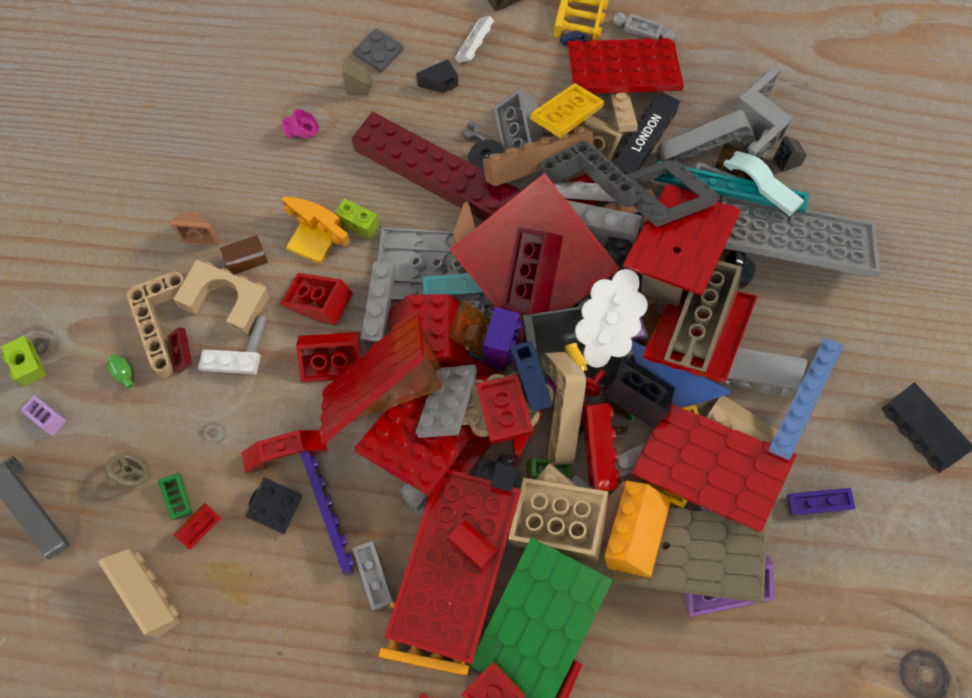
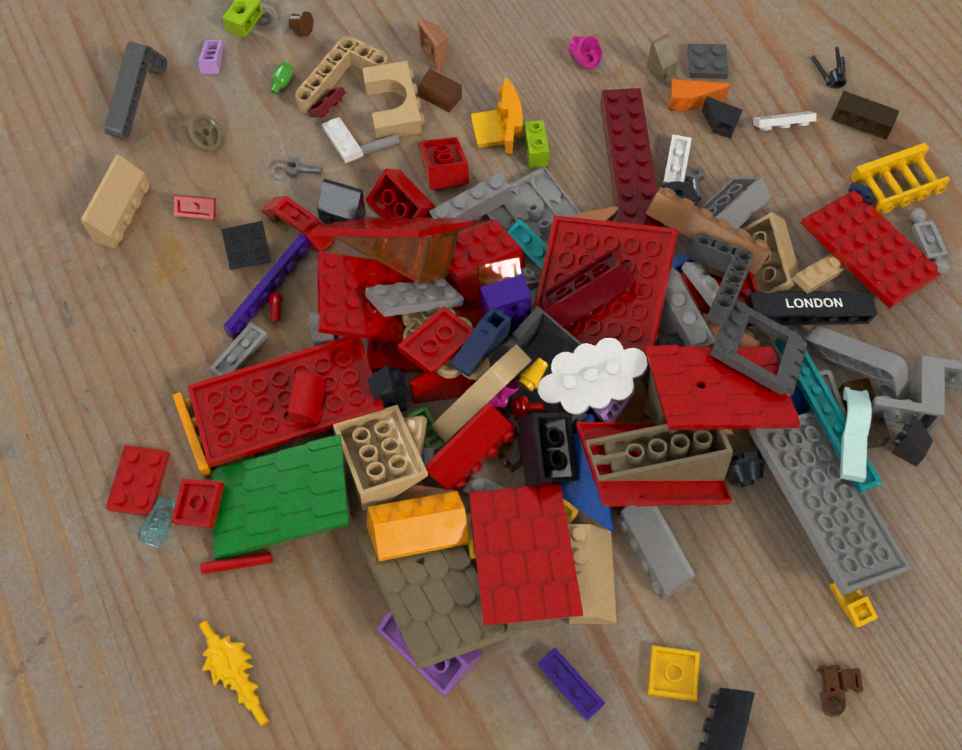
camera: 55 degrees right, 5 degrees down
(77, 318) = (302, 23): none -> reddish brown piece
(165, 492) = (219, 176): green slope -> none
(227, 413) = (299, 168): none -> flat silver bar
(298, 404) = (340, 202): none -> slope
(348, 516) = (275, 300): none -> red arm
(399, 84) = (689, 94): none -> orange slope
(451, 134) = (677, 159): none -> white plate
(567, 110) = (771, 222): yellow plate -> none
(805, 399) = (657, 600): medium blue plate -> none
(853, 426) = (673, 673): none -> yellow tile
(885, 278) = (856, 606): none -> yellow slope
(922, 329) = (838, 681): none -> reddish brown piece

